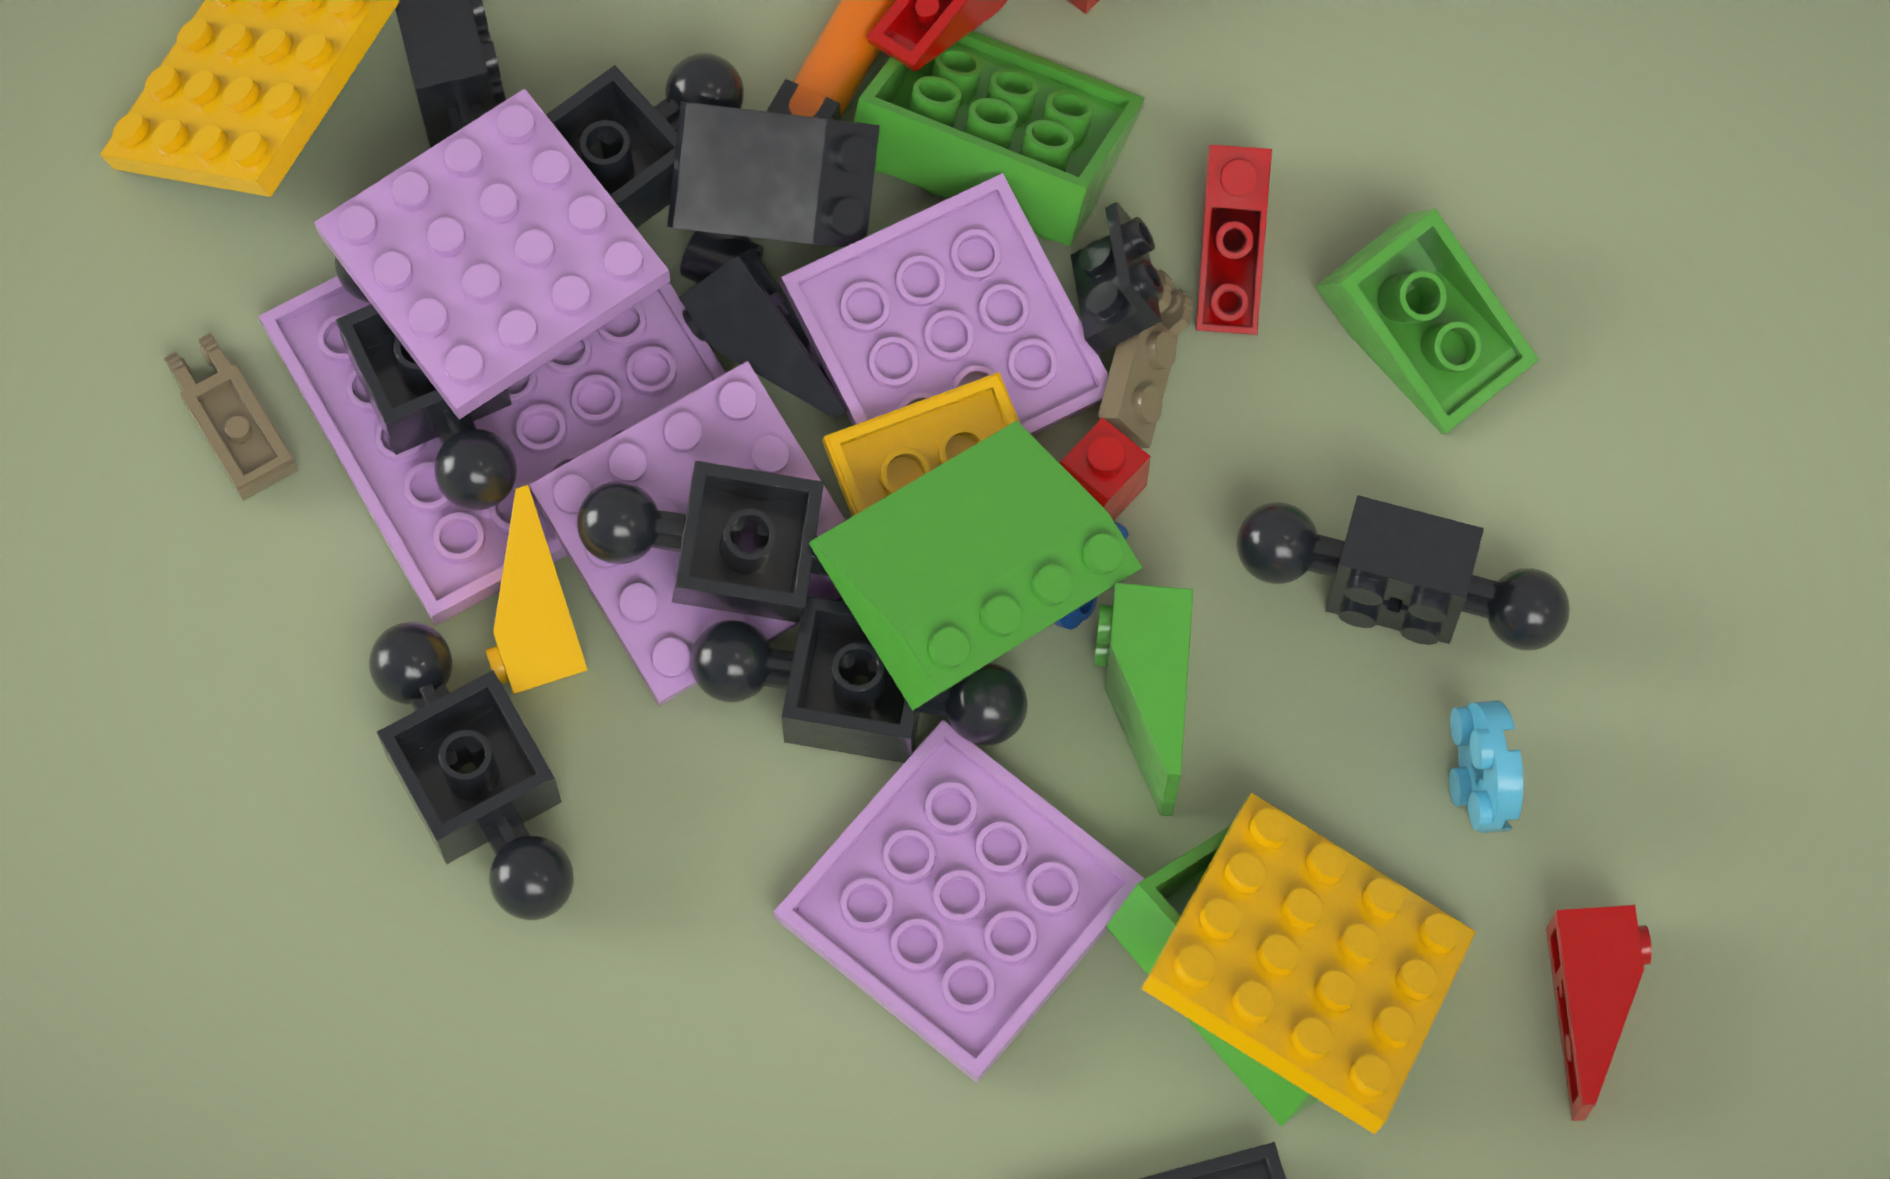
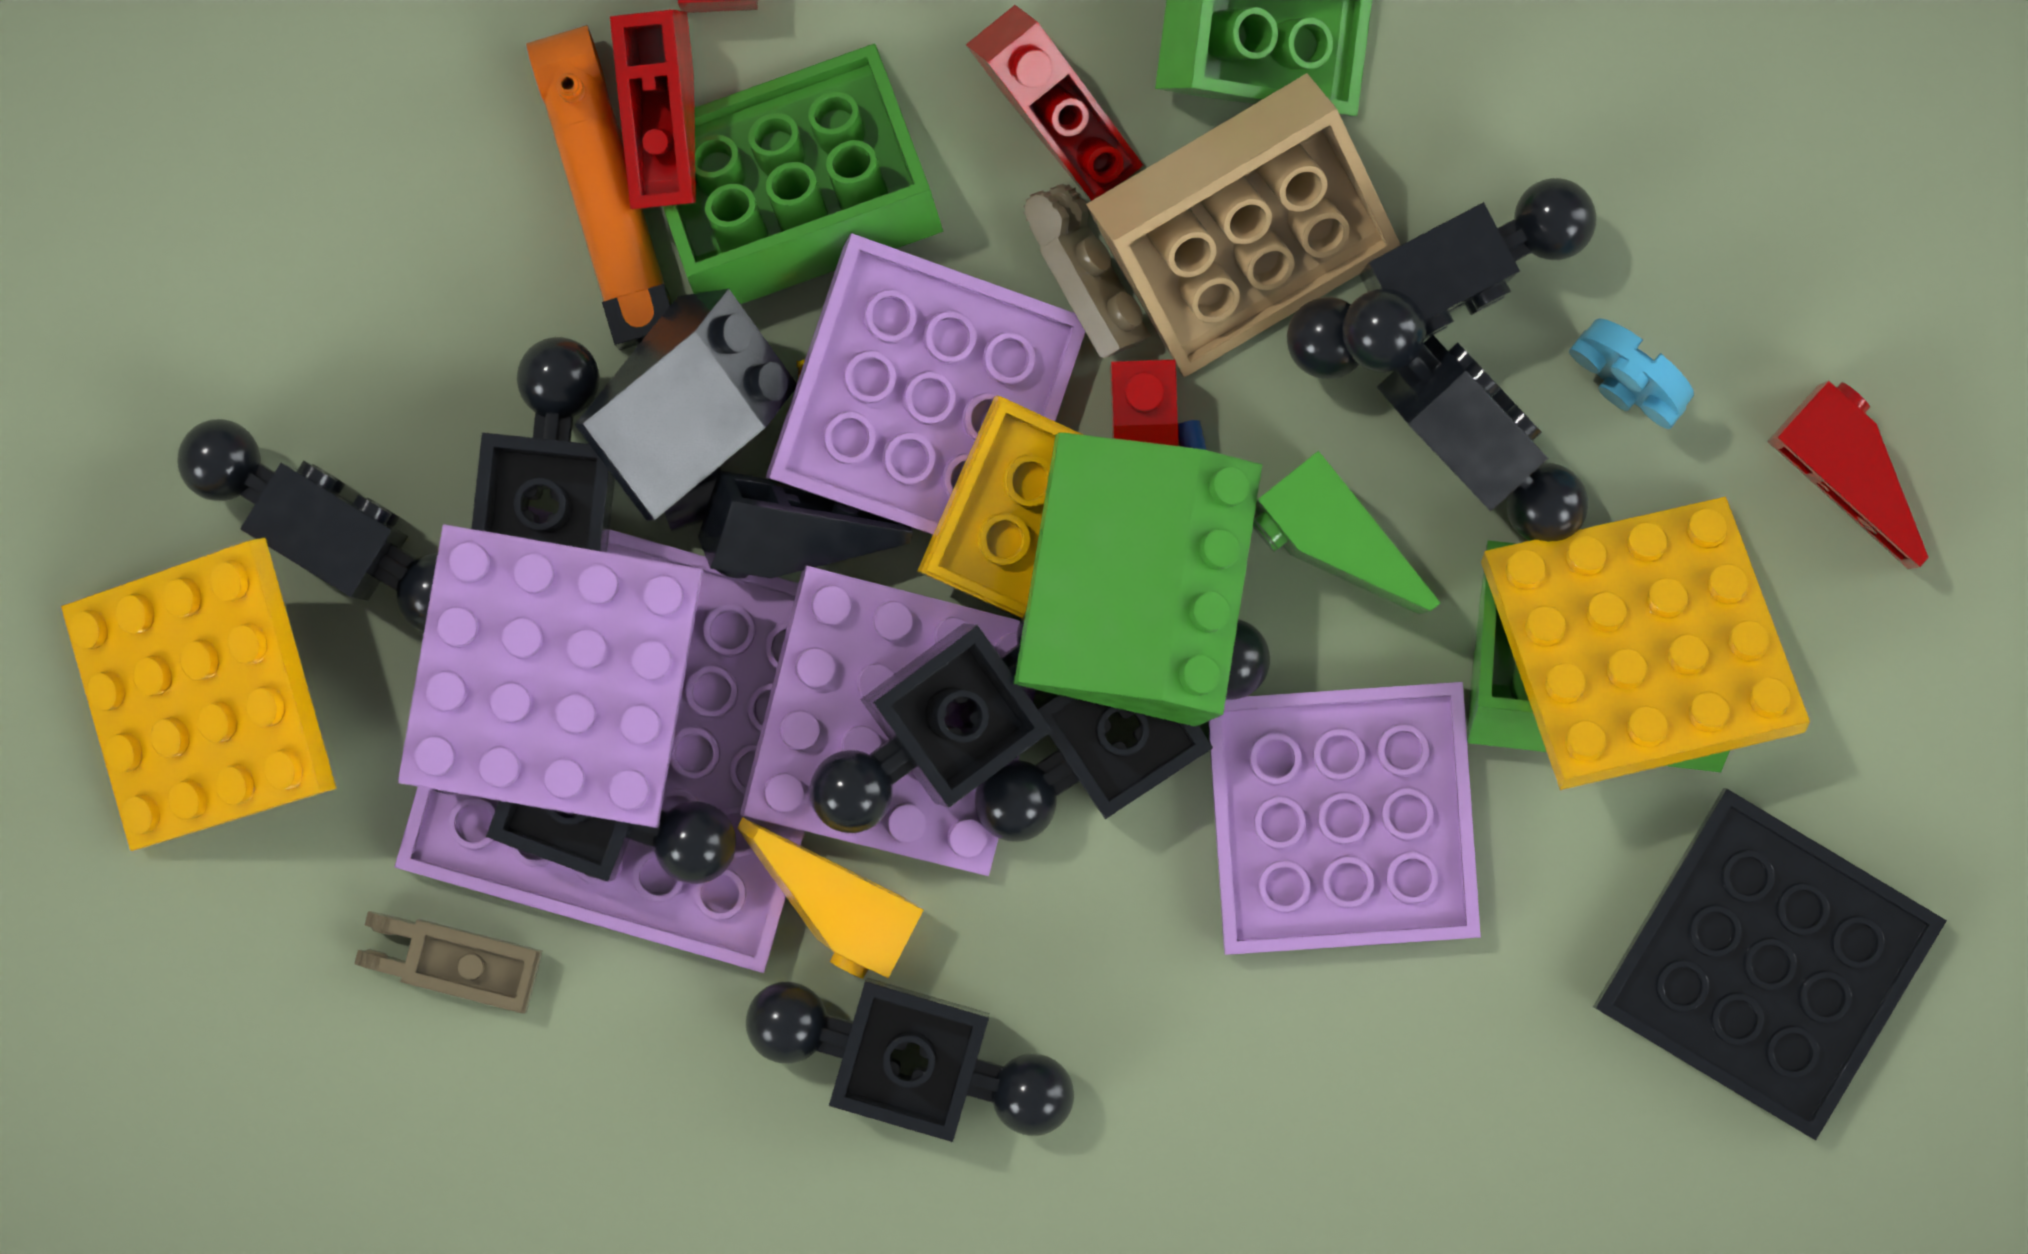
camera: 45 degrees left, 20 degrees up
(1117, 282) = (1013, 235): black bracket -> none
(1287, 417) = (1245, 224): none -> tan slope
(1322, 675) = (1464, 417): none -> black brick

